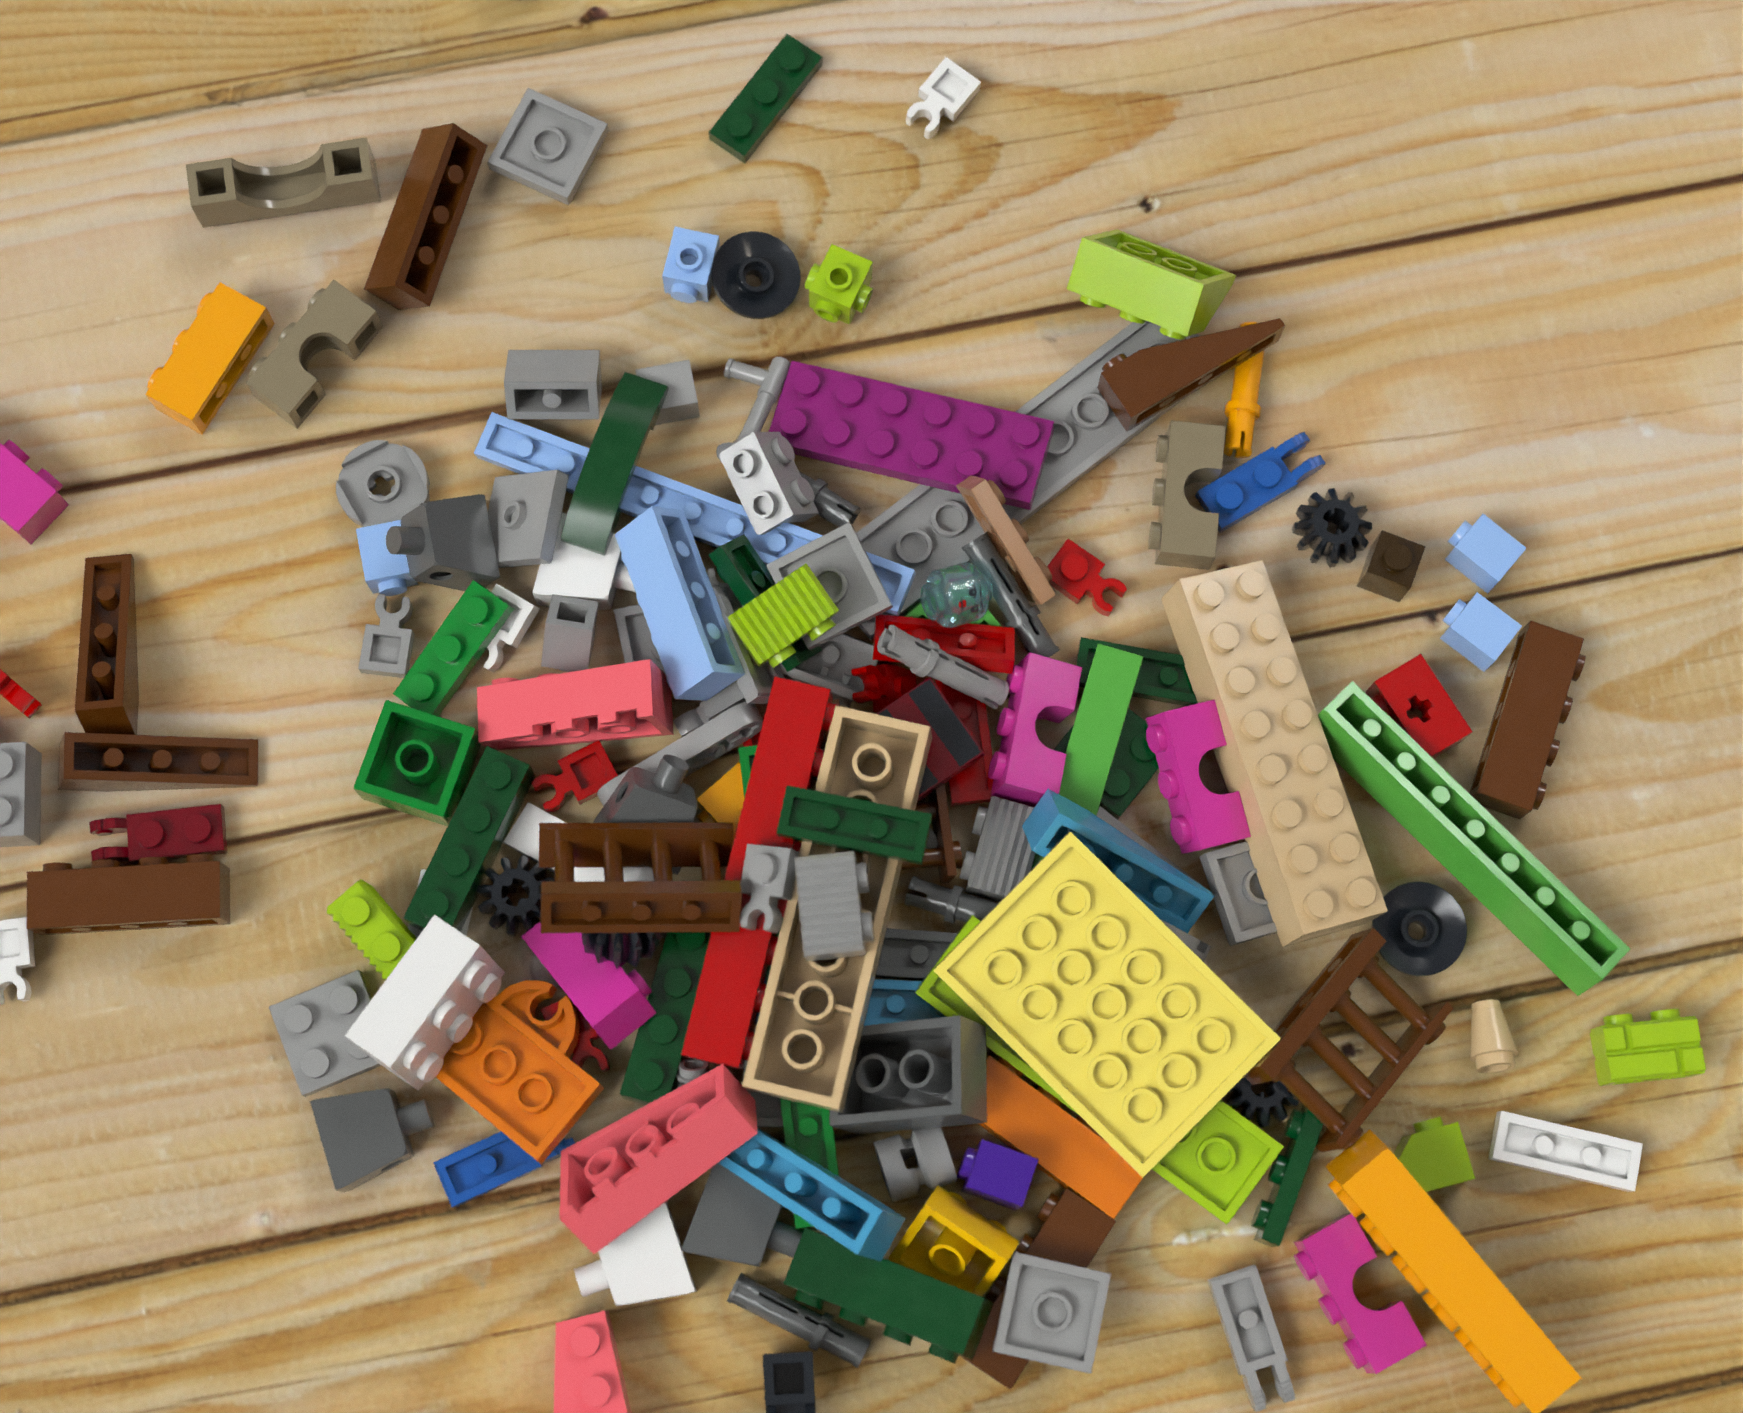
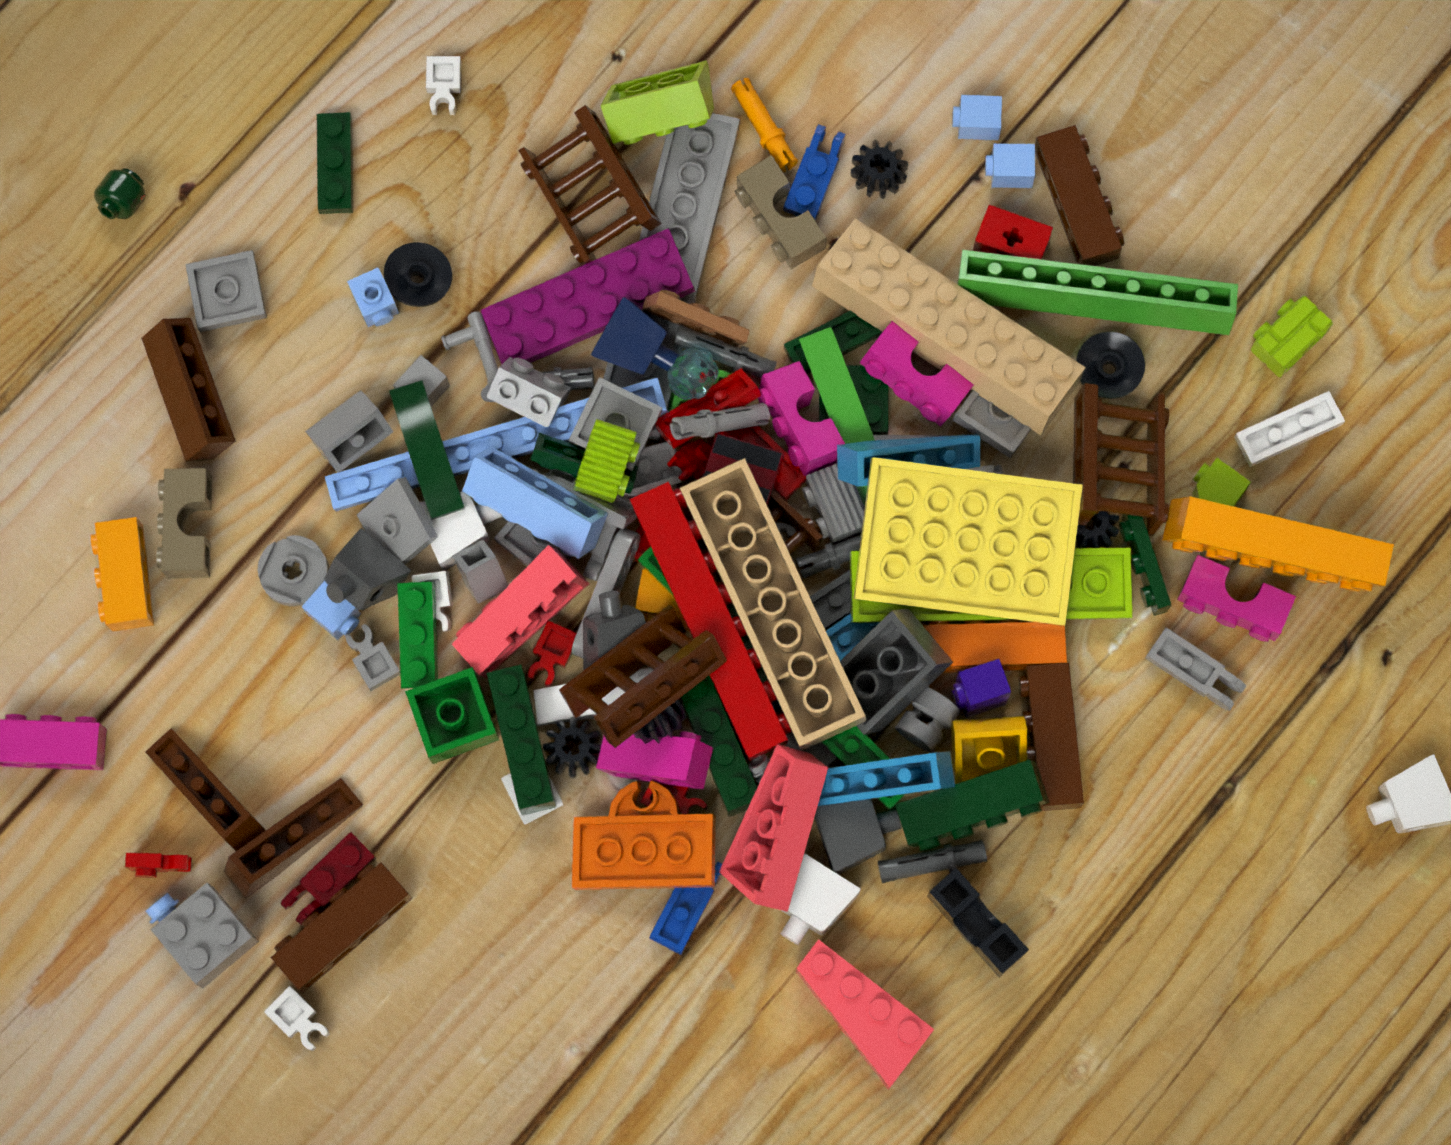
camera: 30 degrees left, 0 degrees up
(236, 192) = (108, 411): dark tan arch -> none
(315, 1032) = (526, 912): light grey plate -> none
(367, 1133) = (596, 951): dark grey torso -> none
(372, 926) = (508, 831): lime brick -> none
(427, 1003) = (575, 845): white brick -> none
(767, 878) = (718, 616): light grey plate -> none
(831, 905) = (771, 602): light grey brick -> none
(839, 285) = (474, 243): lime brick -> none
(854, 825) = (747, 547): dark green plate -> none
(921, 511) = (634, 340): none -> dark blue torso
(1041, 339) = (621, 185): none -> reddish brown fence
(1051, 1312) = (1073, 740): light grey plate -> none
(1077, 574) = (752, 309): red plate -> none
(1166, 373) = (712, 150): reddish brown slope -> none
(1390, 566) = (931, 166): dark brown brick -> none
(1491, 1038) = (1199, 397): tan cone -> none

